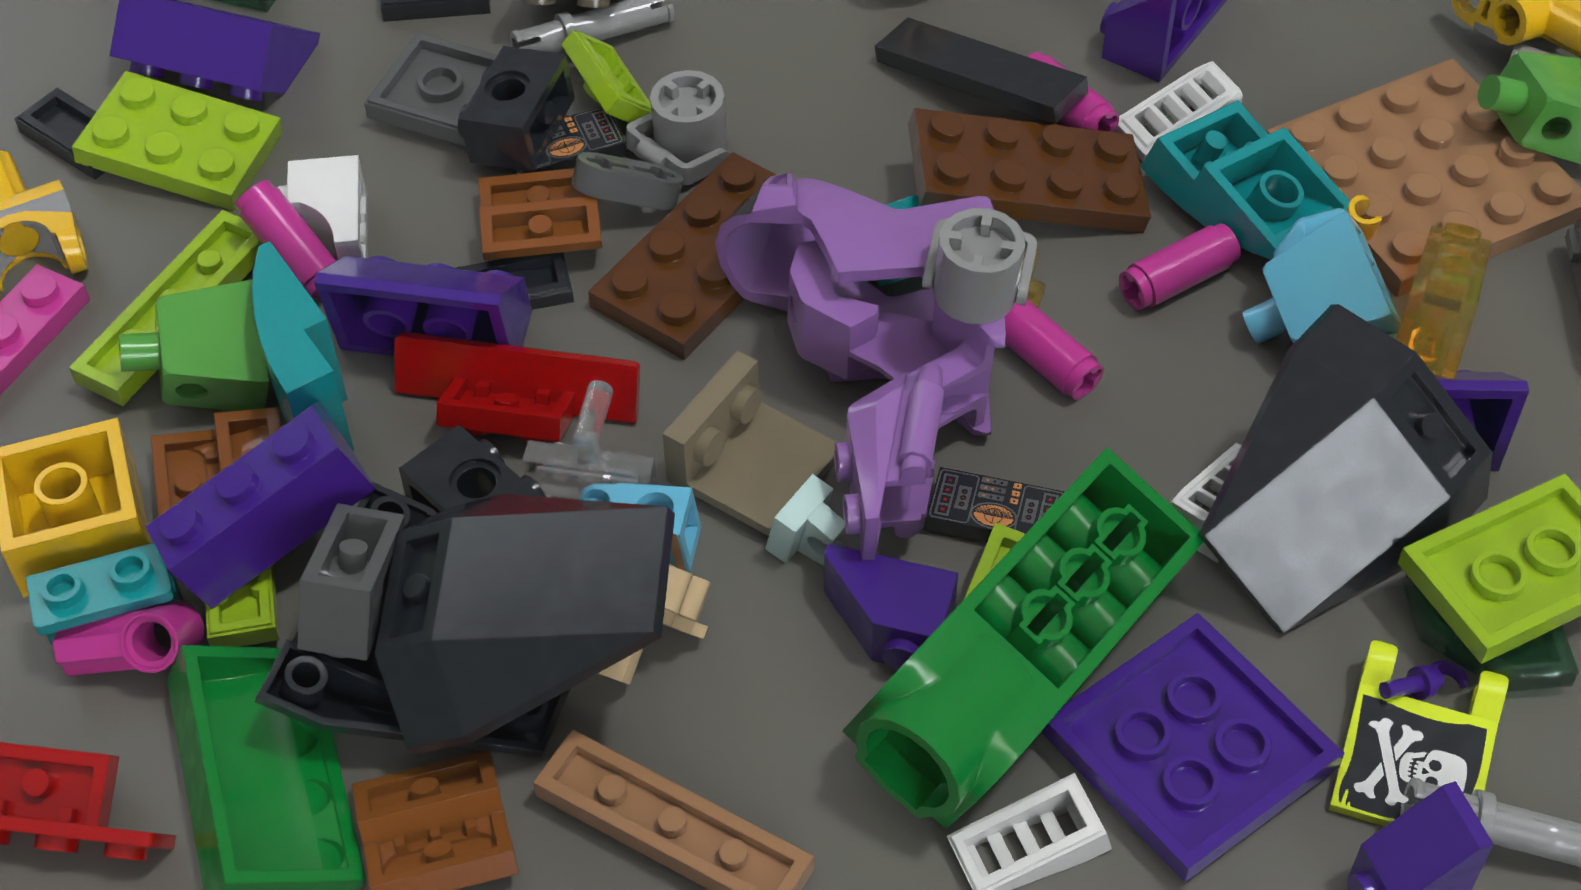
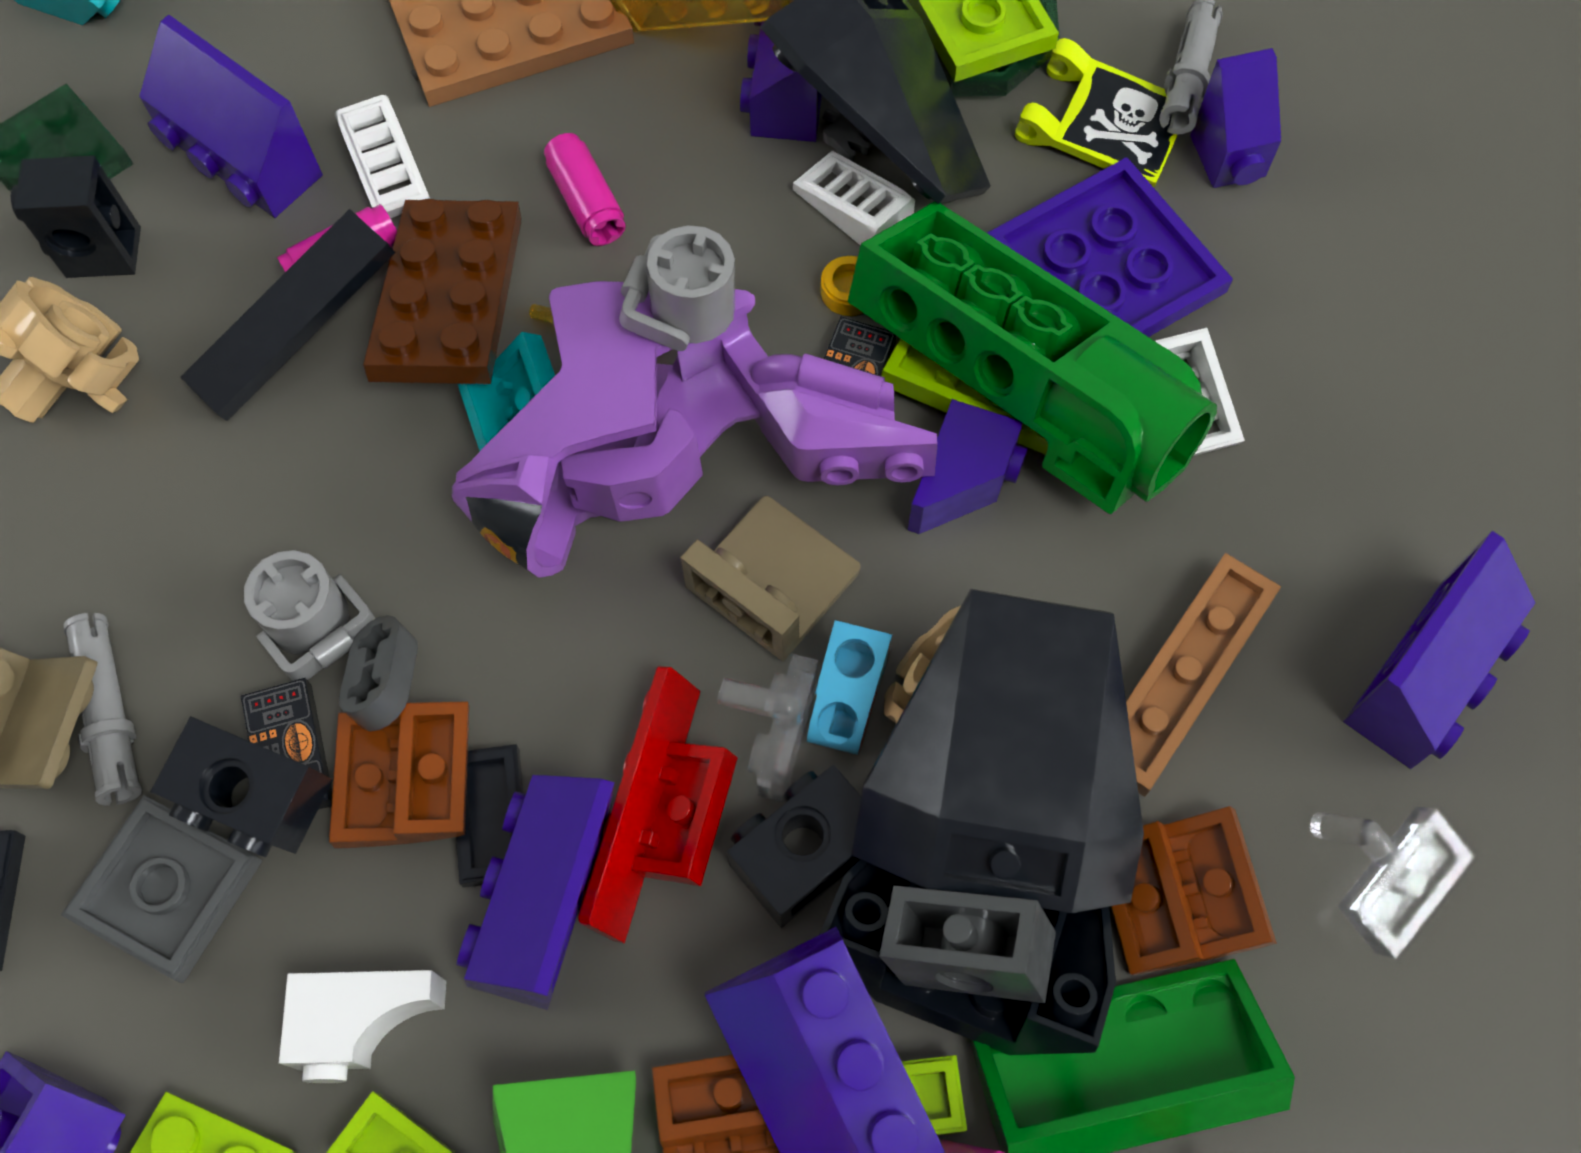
camera: 85 degrees left, 15 degrees up
(276, 220) = (400, 1062): dark pink piece -> none
(296, 342) = (605, 1034): teal slope -> none
(606, 77) = (201, 690): lime plate -> none
(673, 279) = (484, 613): reddish brown plate -> none
(806, 524) = (863, 530): light aqua tile -> none
(1241, 177) = (497, 115): teal slope -> none
(1324, 264) = (653, 68): medium azure torso -> none
(1424, 681) = (1050, 97): dark purple hand -> none

